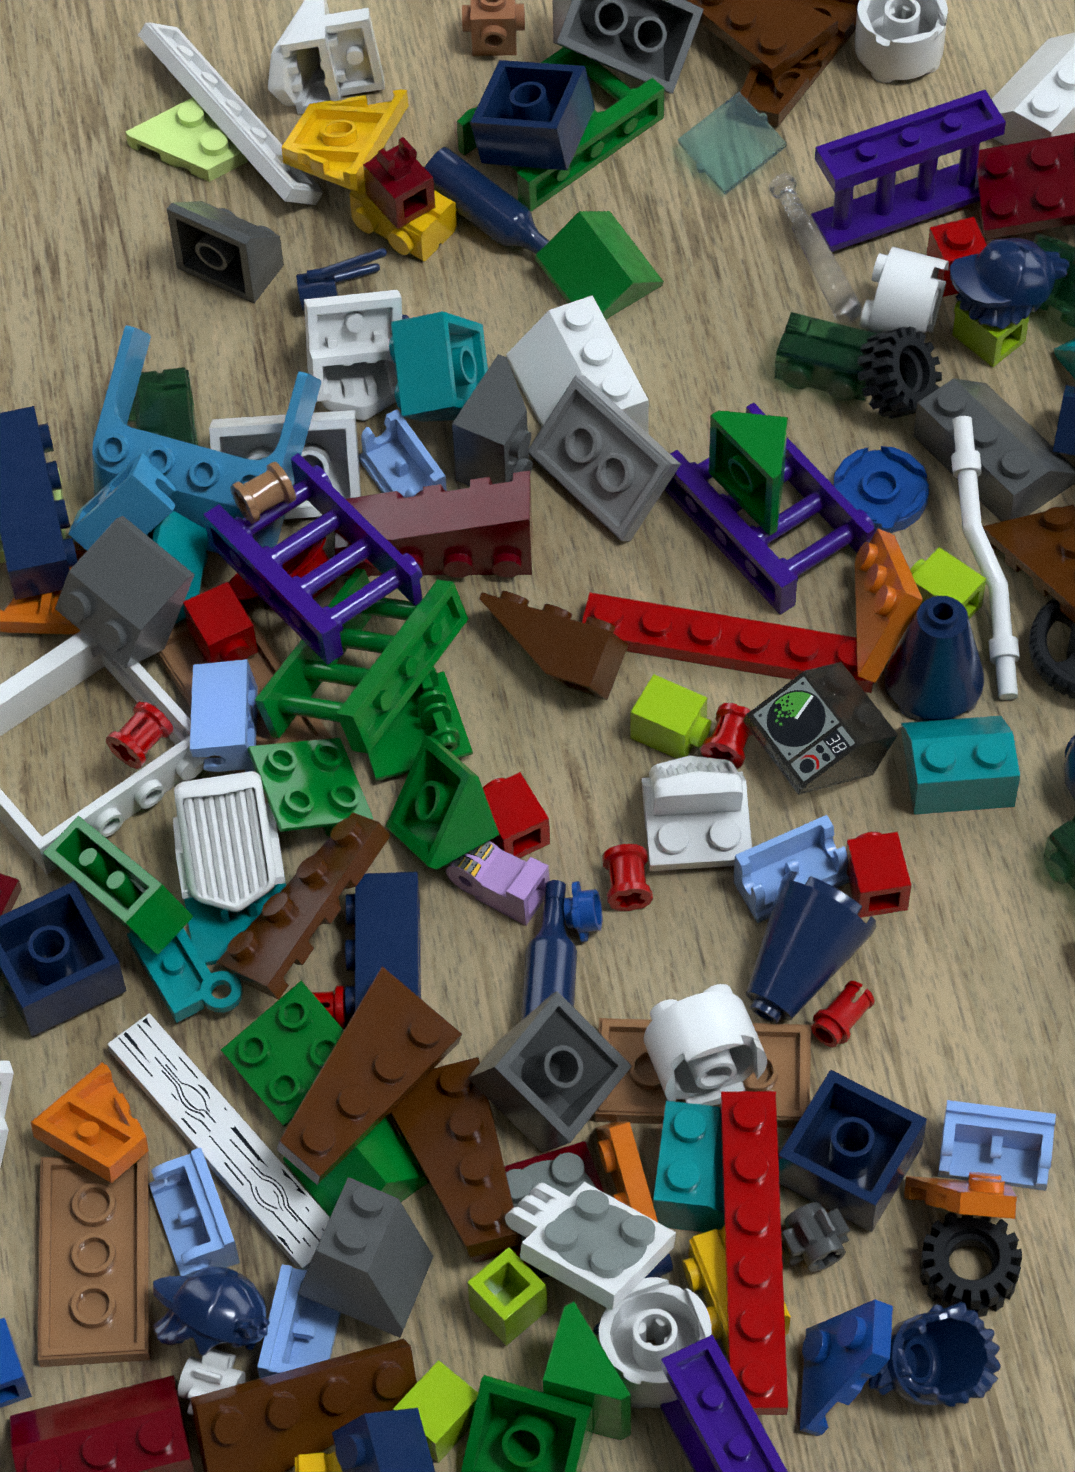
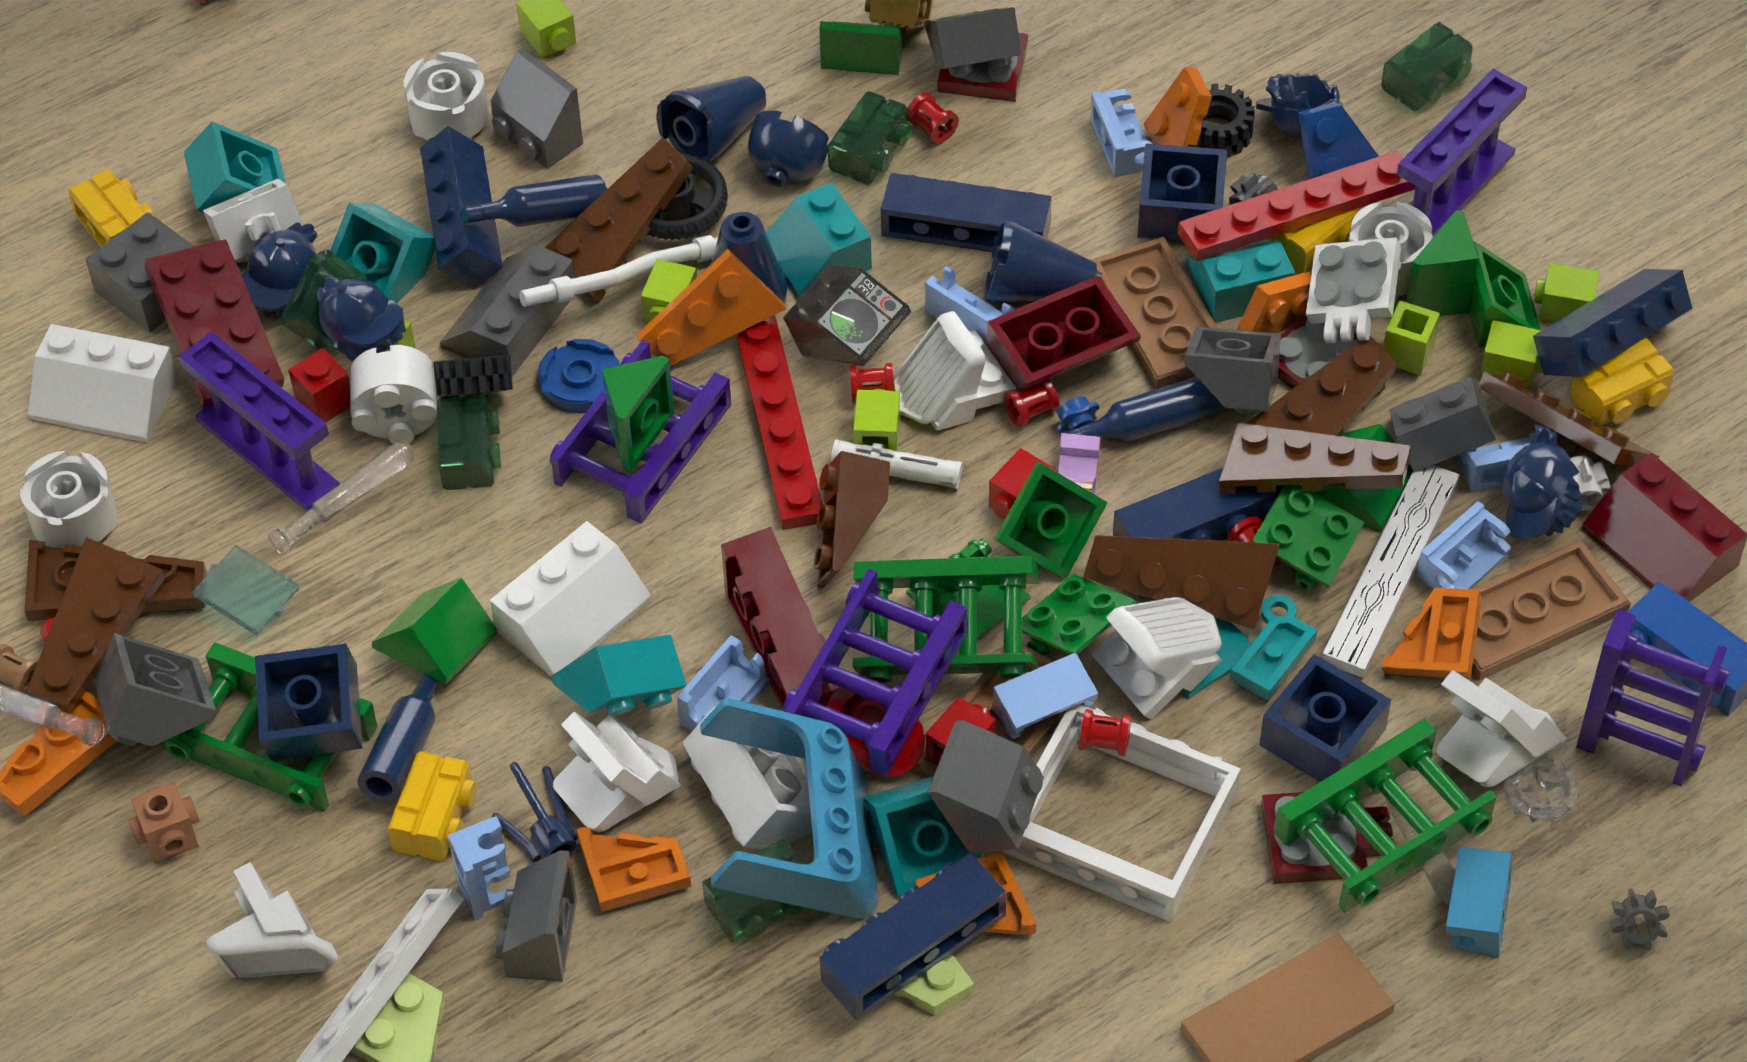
camera: 115 degrees left, 5 degrees down
(118, 884) = (1244, 692): green brick -> none
(136, 493) = (893, 840): dark azure hinge -> none
(253, 340) = (632, 867): none -> orange wing
(263, 492) = (844, 710): medium nougat bush -> none
(298, 208) = (478, 863): none -> light blue hinge
(341, 136) = (367, 880): yellow wing -> none
(399, 184) = (431, 779): dark red brick -> none
(492, 429) = (665, 605): dark grey slope -> none
(603, 458) = (652, 543): light grey tile -> none
(606, 723) = (908, 465): none -> white pin
(681, 919) = (1059, 333): none -> dark red slope
(703, 1046) = (1164, 280): white brick -> none
(834, 1023) = (1082, 244): red pin -> none
(878, 873) = (946, 247): red brick -> none
(934, 918) = (958, 212): none -> dark blue brick

